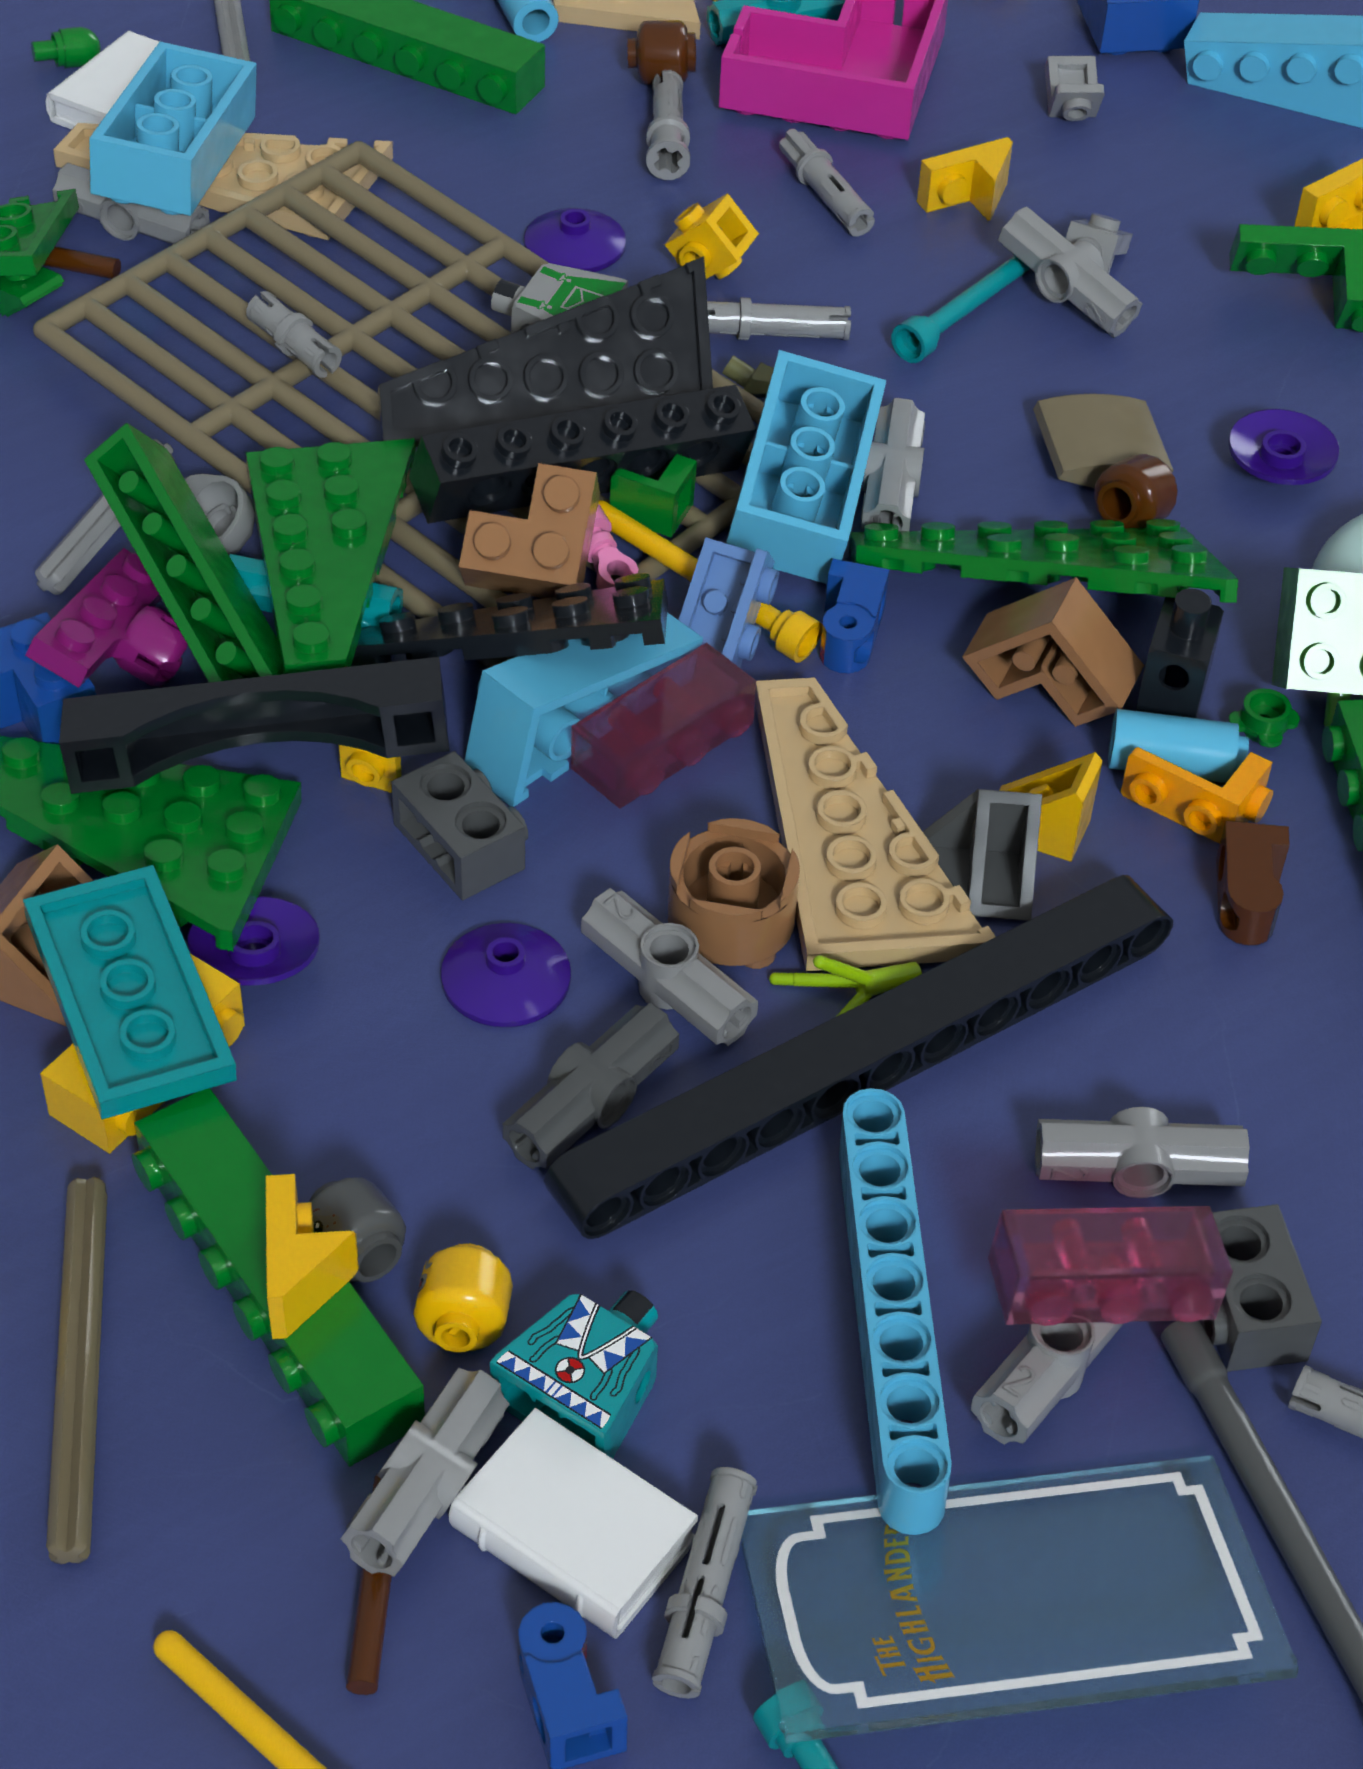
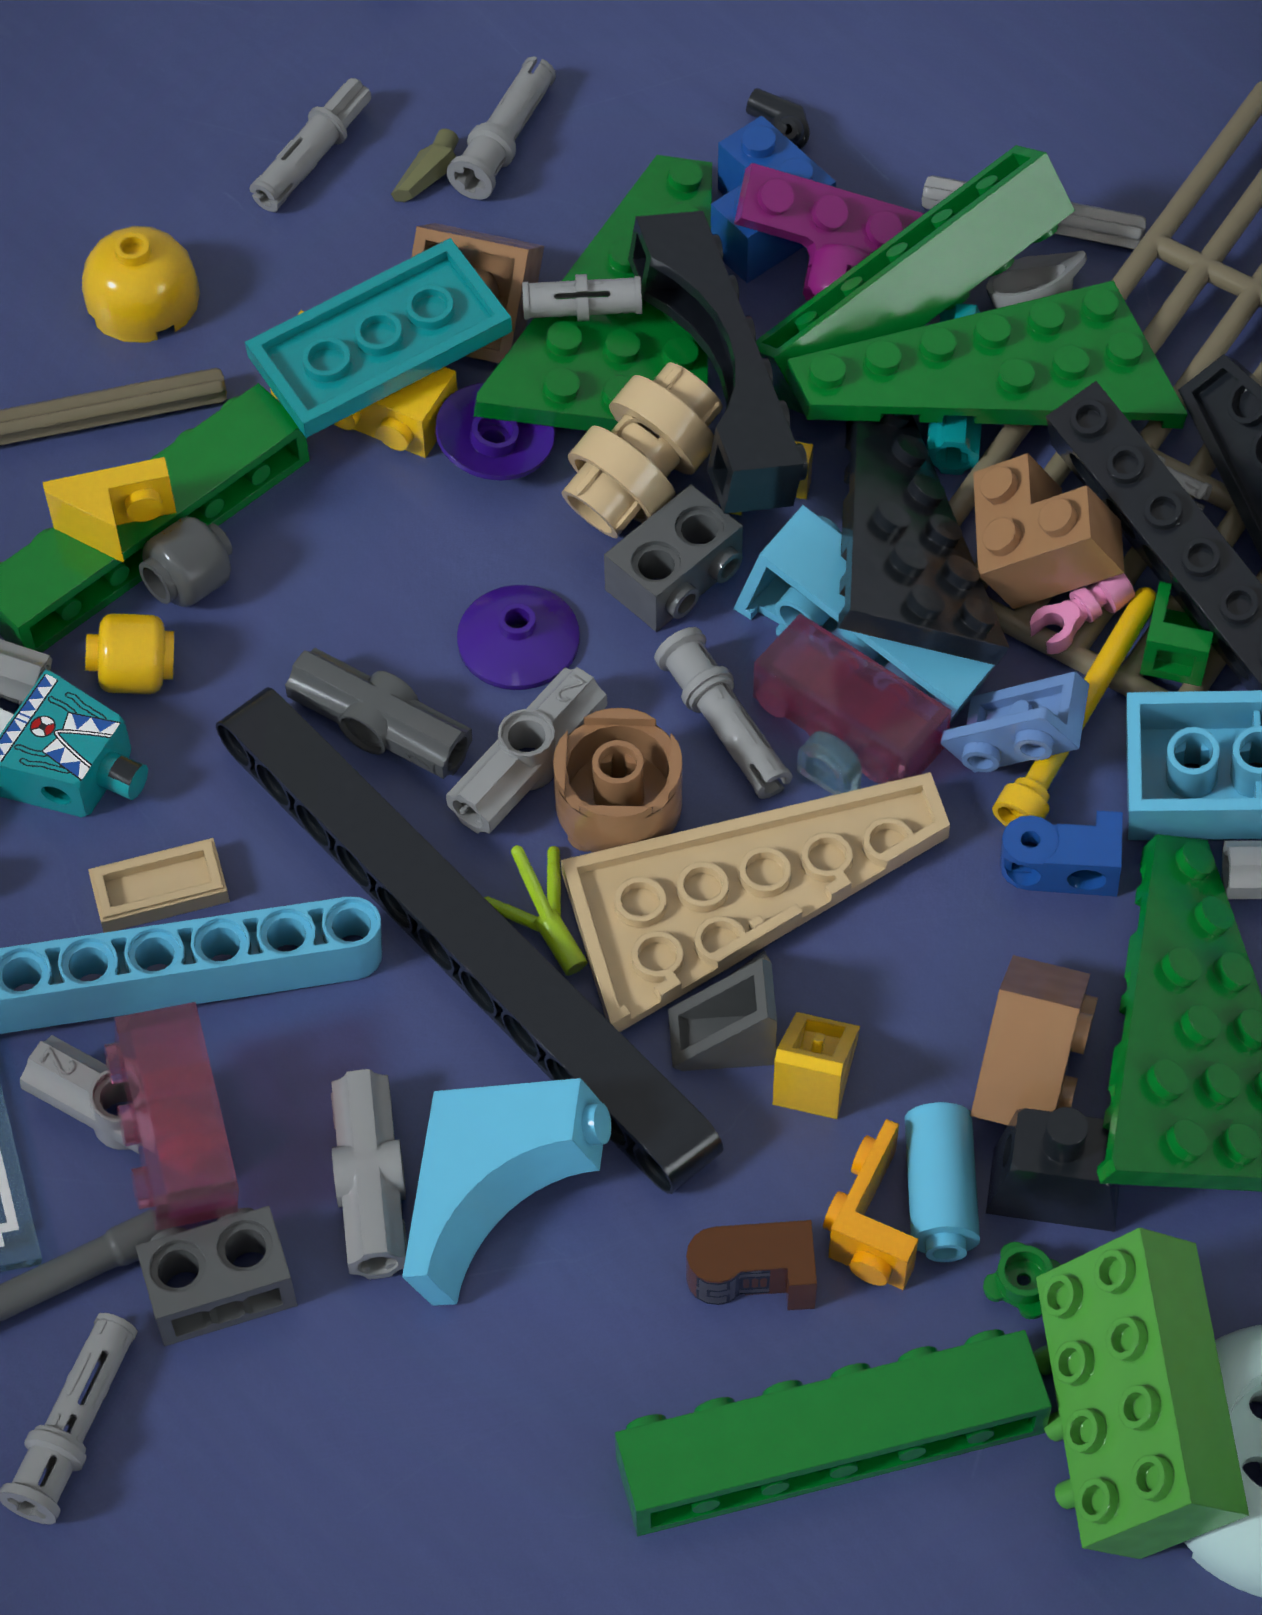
camera: 85 degrees right, 10 degrees up
(128, 819) = (544, 300): none -> light grey pin
(323, 786) = (657, 431): none -> tan piece
(624, 824) = (710, 692): none -> light grey pin
(725, 753) = (829, 763): none -> clear light blue tile
(764, 1313) = (158, 885): none -> tan tile
(1144, 1051) = (487, 1156): none -> medium azure arch

